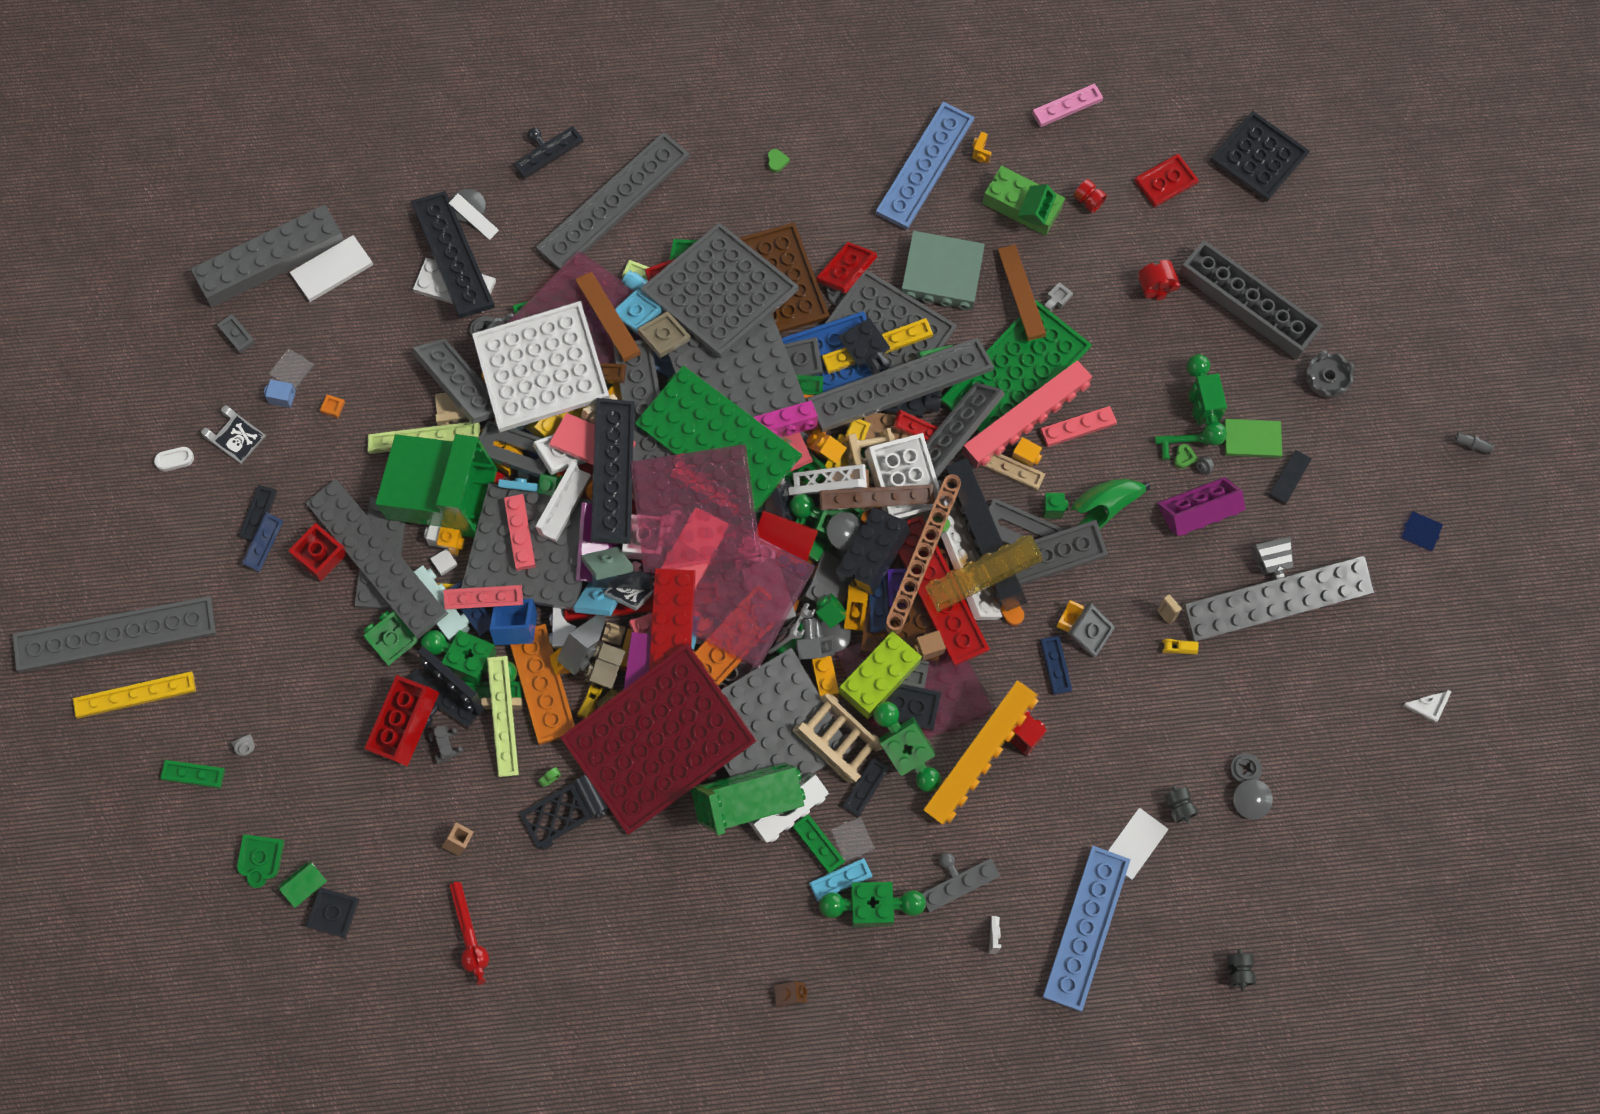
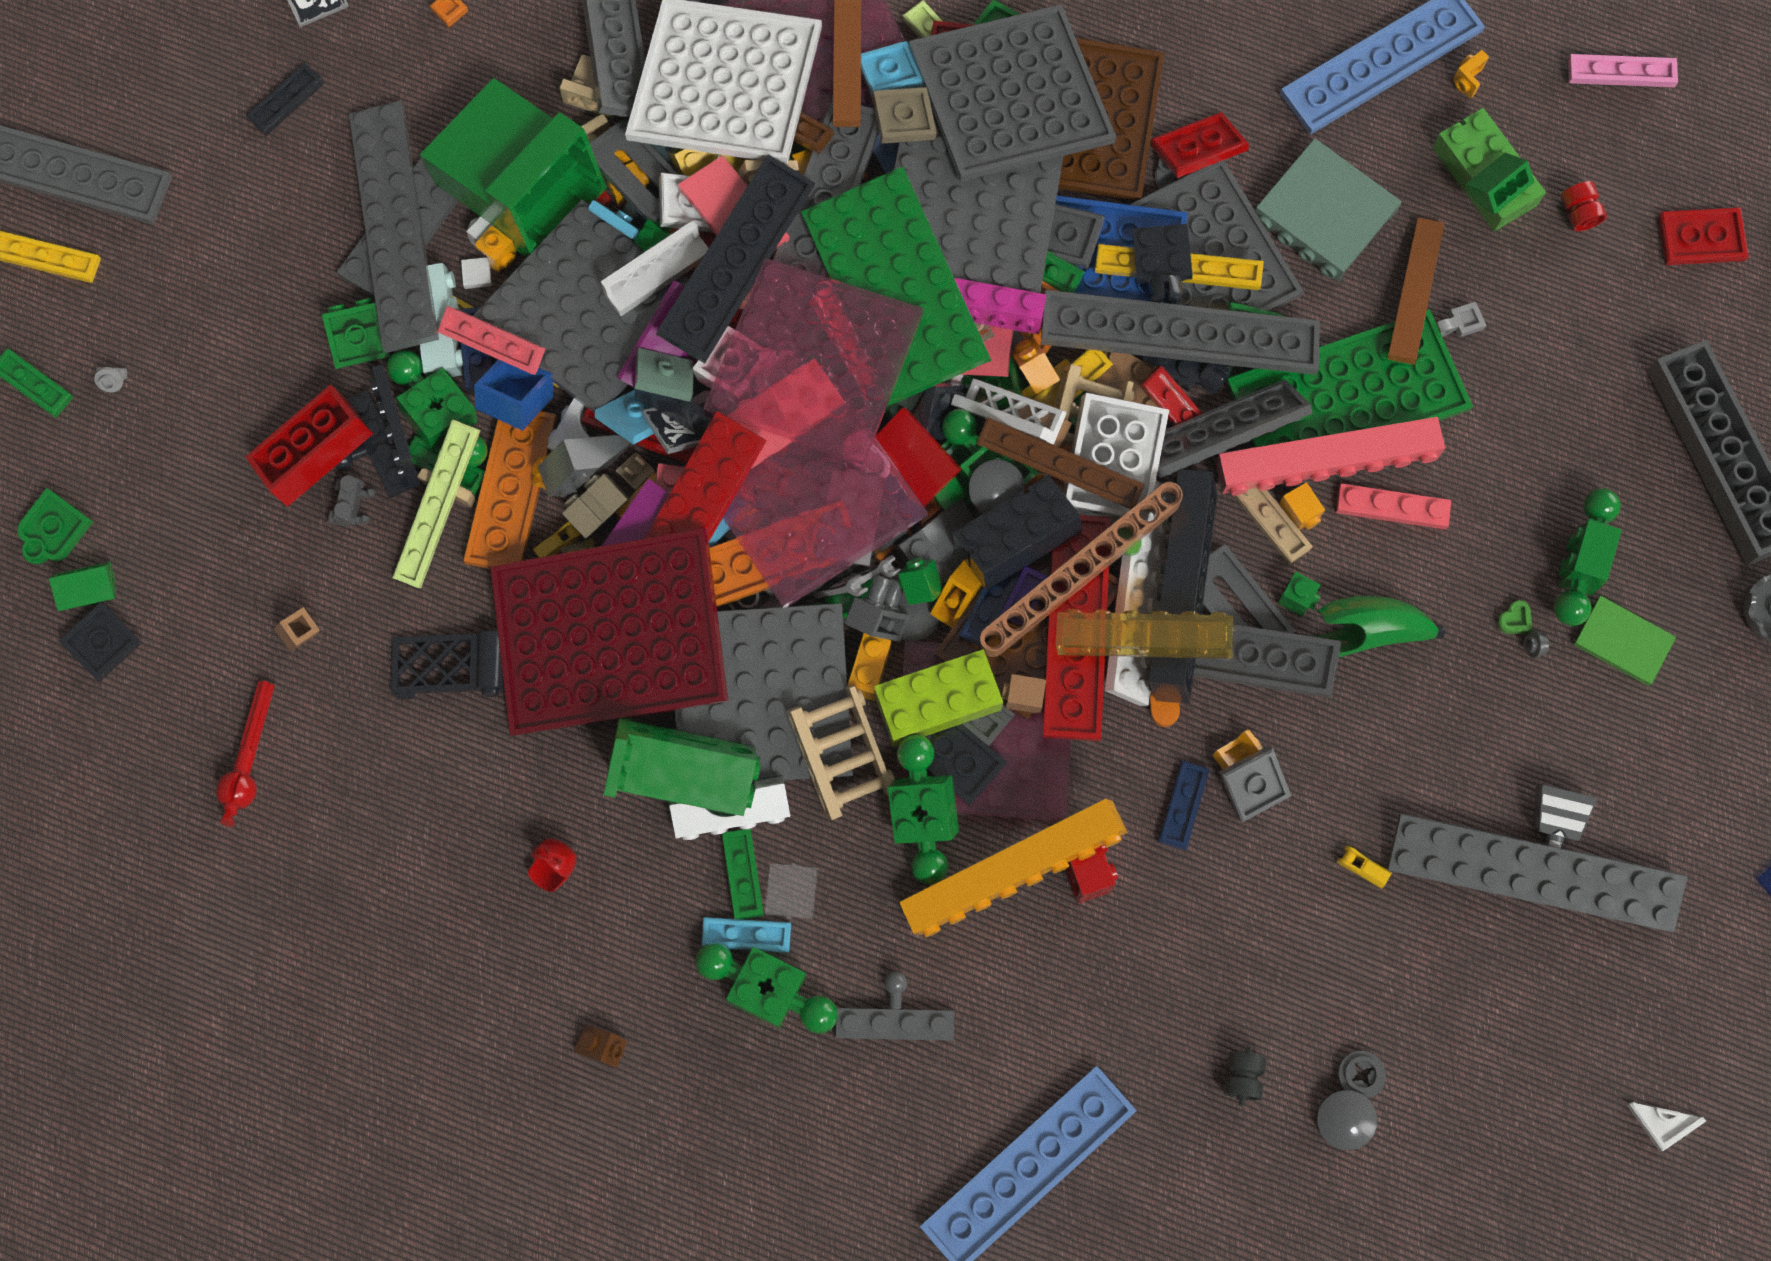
camera: 30 degrees right, 5 degrees up
(262, 542) = (269, 137): dark blue tile -> none
(317, 552) = (326, 182): red brick -> none
(383, 441) = (548, 102): yellowish green tile -> none
(519, 532) = (582, 281): coral plate -> none
(550, 777) = (455, 611): bright green tile -> none
(634, 280) = (910, 27): medium azure brick -> none
(699, 899) = (552, 864): none -> red helmet
(865, 787) = (845, 833): black tile -> none
(995, 934) = (903, 1112): white tile -> none
(1138, 840) = (1163, 1092): white sticker -> none
(1158, 279) = (1613, 363): red brick -> none
(1169, 609) = (1375, 810): tan tile -> none
(1170, 439) = (1502, 583): green piece -> none
(1202, 506) = (1501, 696): magenta slope -> none
(1290, 477) = (1646, 718): black tile -> none

